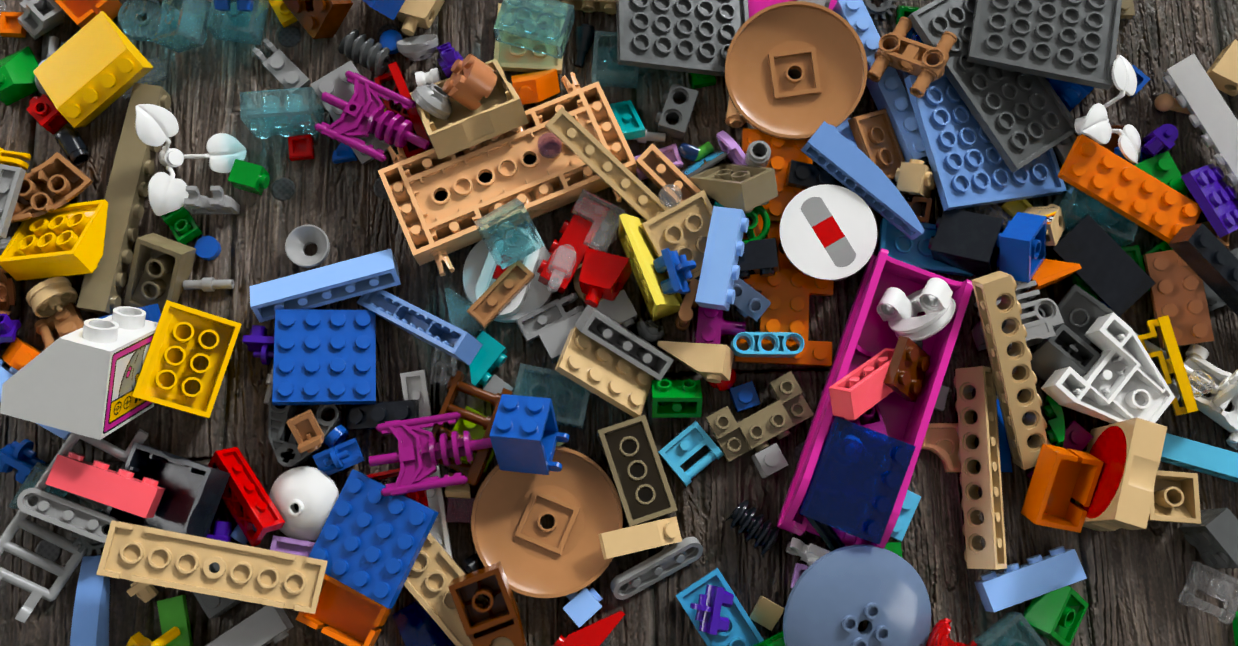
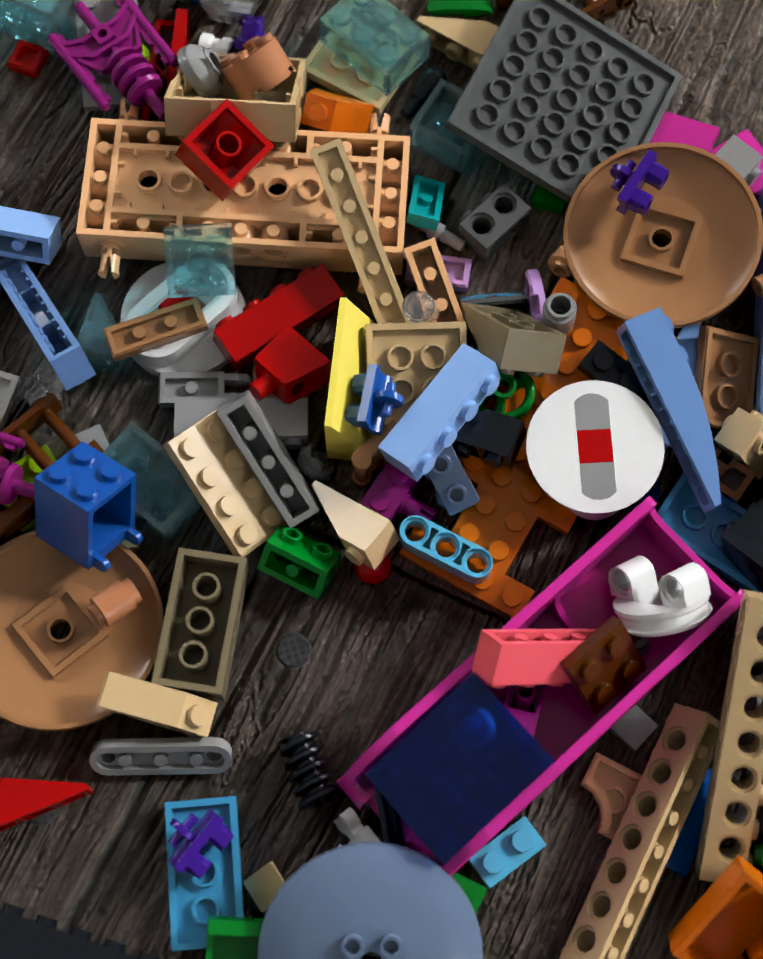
camera: 30 degrees right, 5 degrees down
(343, 154) = (69, 89): blue tile -> none
(486, 151) = (224, 149): none -> red slope
(488, 357) = (96, 400): teal slope -> none
(549, 145) = (307, 182): tile -> none
(561, 266) = (242, 330): clear arm -> none
(576, 487) = (114, 602): none -> nougat brick
(583, 605) = (45, 754): light blue brick -> none
(602, 215) = (325, 291): clear plate -> none
(684, 447) = (280, 627): medium azure plate -> none
(695, 153) = (489, 282): arm -> none
(744, 396) = (388, 605): blue plate -> none
(769, 33) = (646, 172): none -> dark purple hips
(769, 460) = (374, 697): light grey brick -> none
(770, 422) = (391, 649): dark tan bracket -> none

